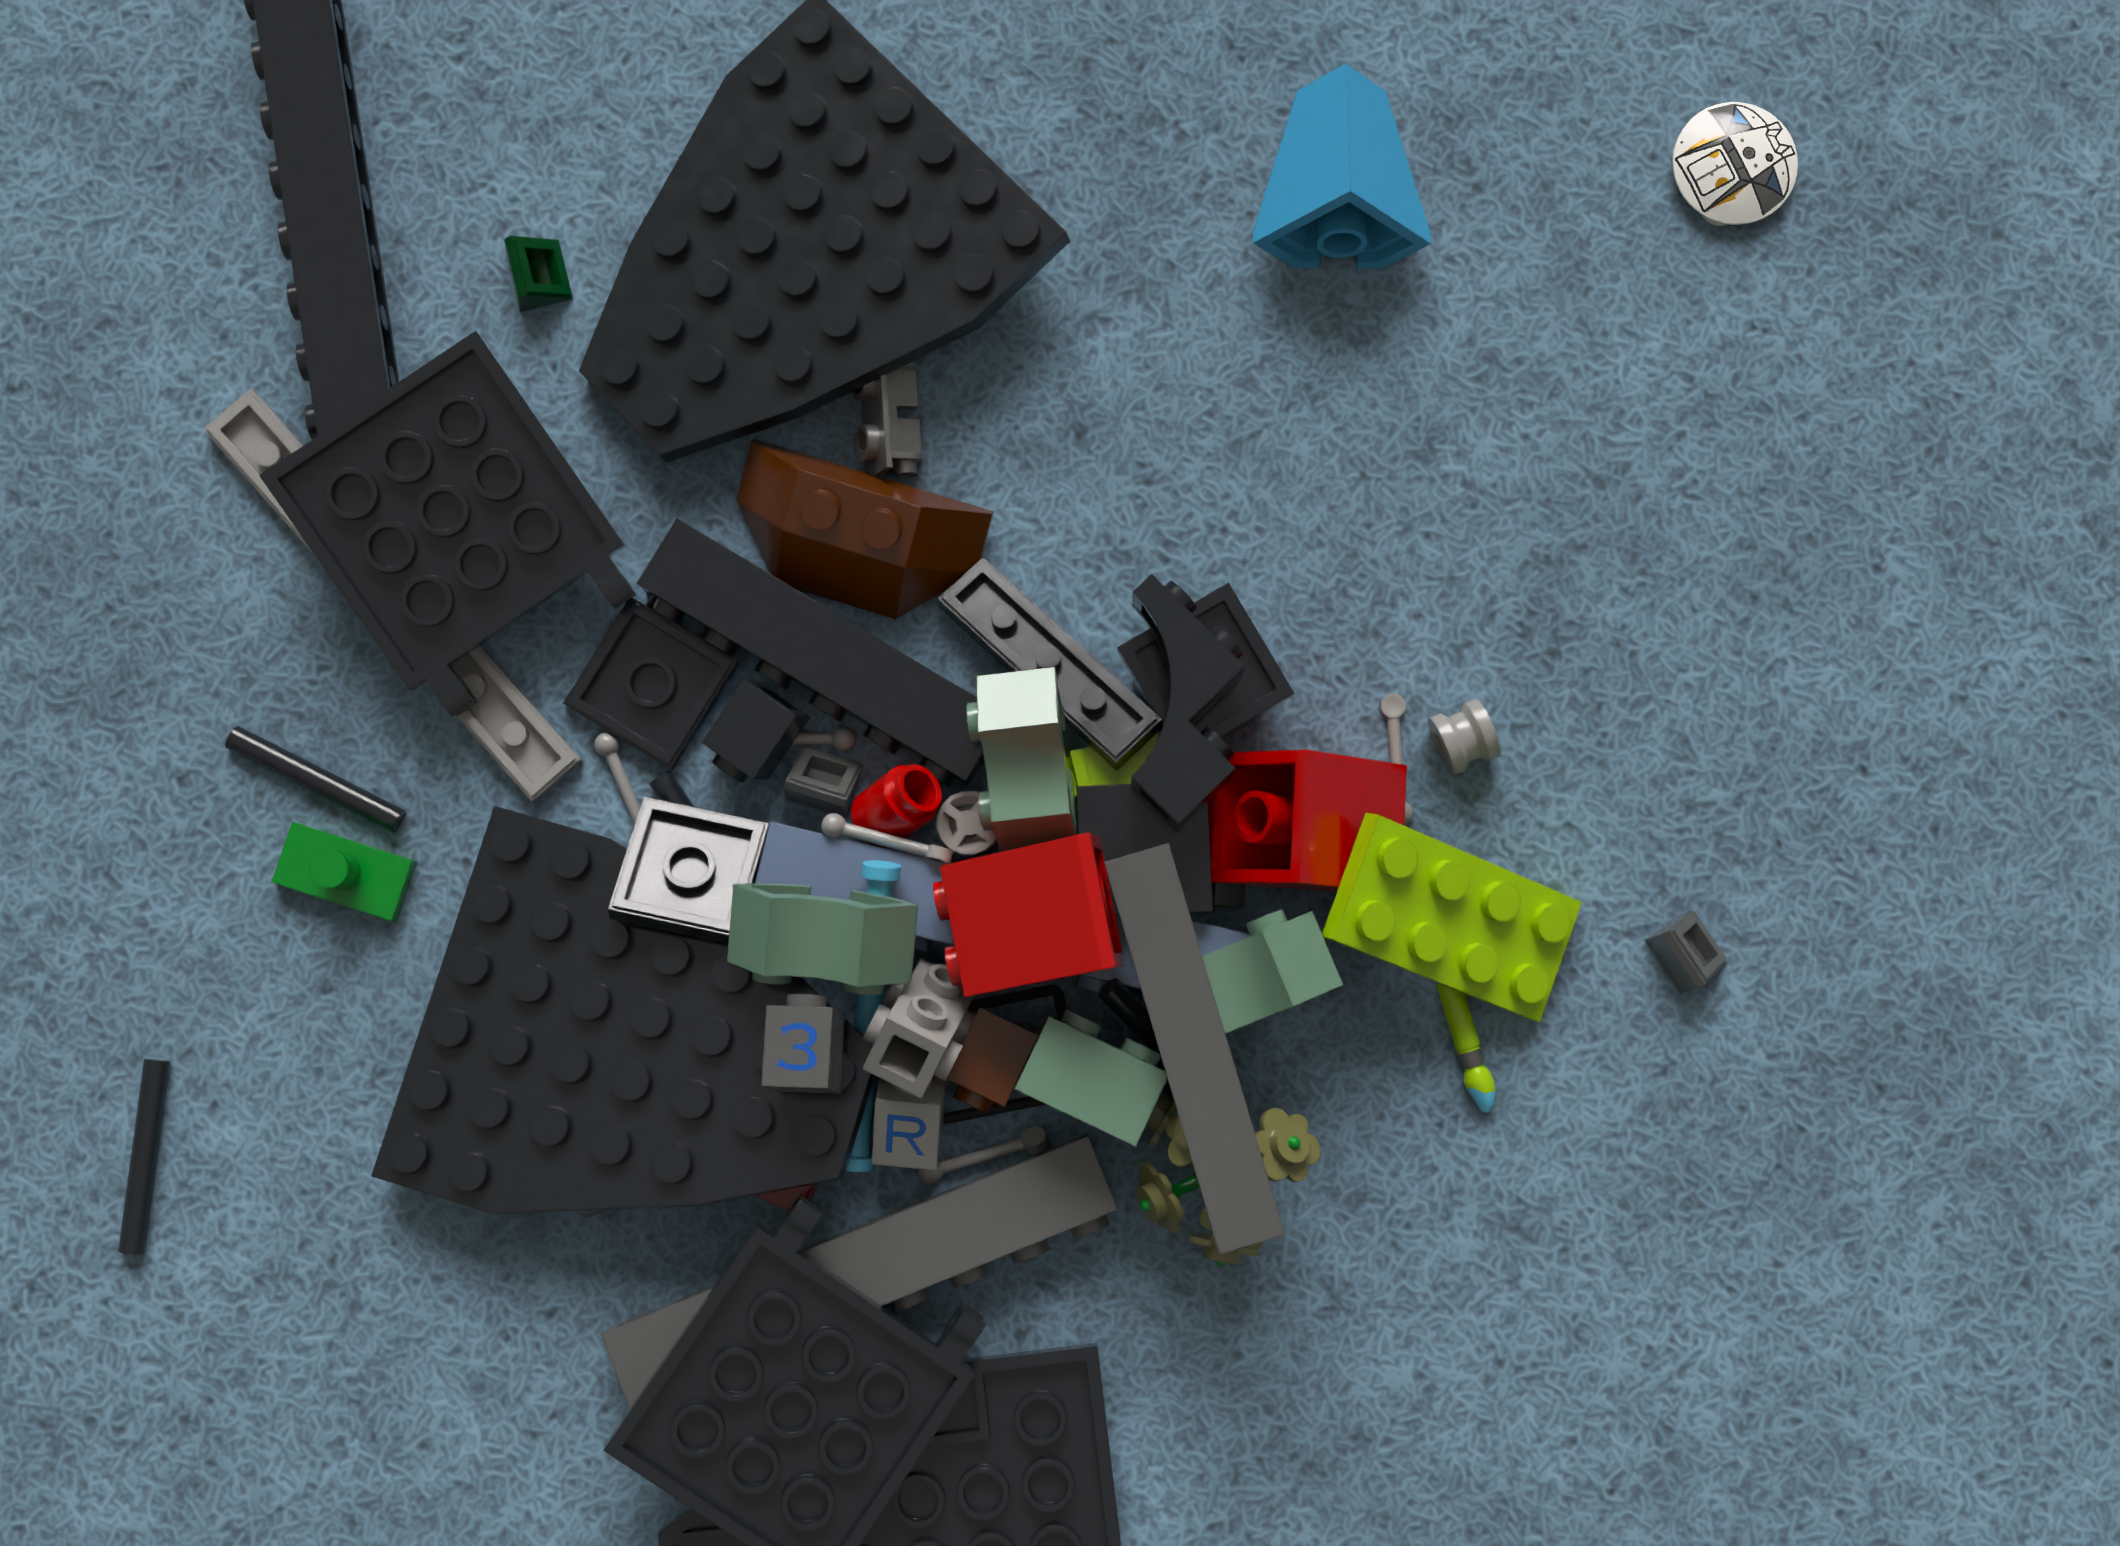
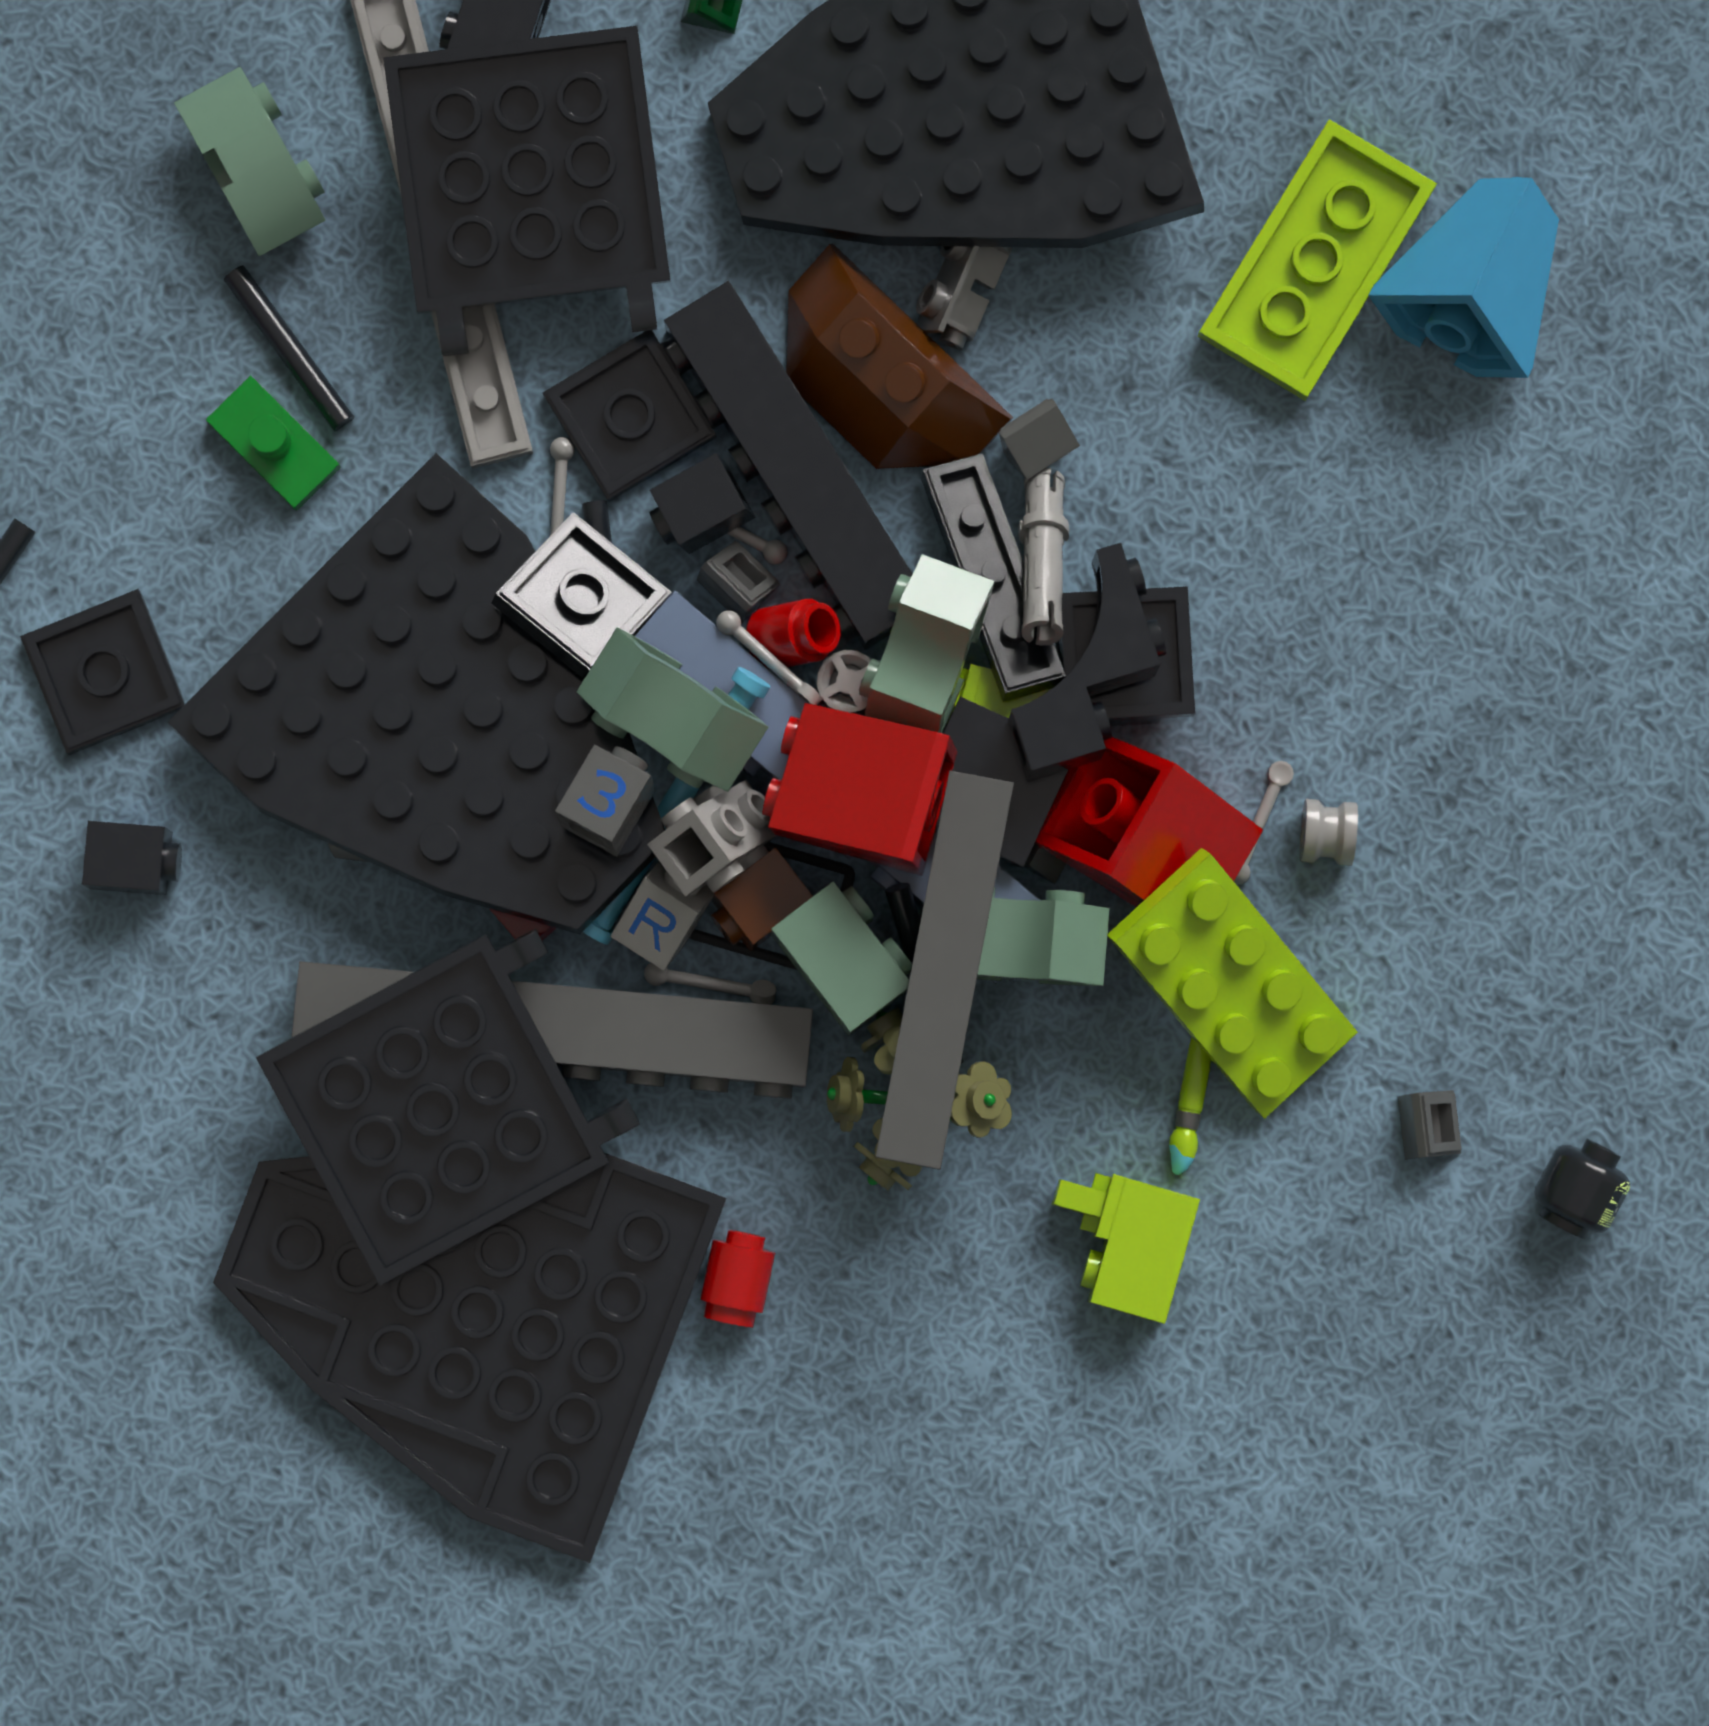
camera: 20 degrees right, 0 degrees up
(194, 630) = (251, 161): none -> sand green brick
(294, 1156) = (103, 671): none -> black tile
(401, 1316) = (130, 858): none -> black brick
(1025, 519) = (1037, 438): none -> dark grey slope
(1076, 604) = (1043, 541): none -> light grey pin
(1144, 1413) = (737, 1279): none -> red brick
(1190, 236) = (1316, 259): none -> lime plate
(1492, 1192) = (1143, 1242): none -> lime hinge
(1855, 940) = (1582, 1188): none -> black head

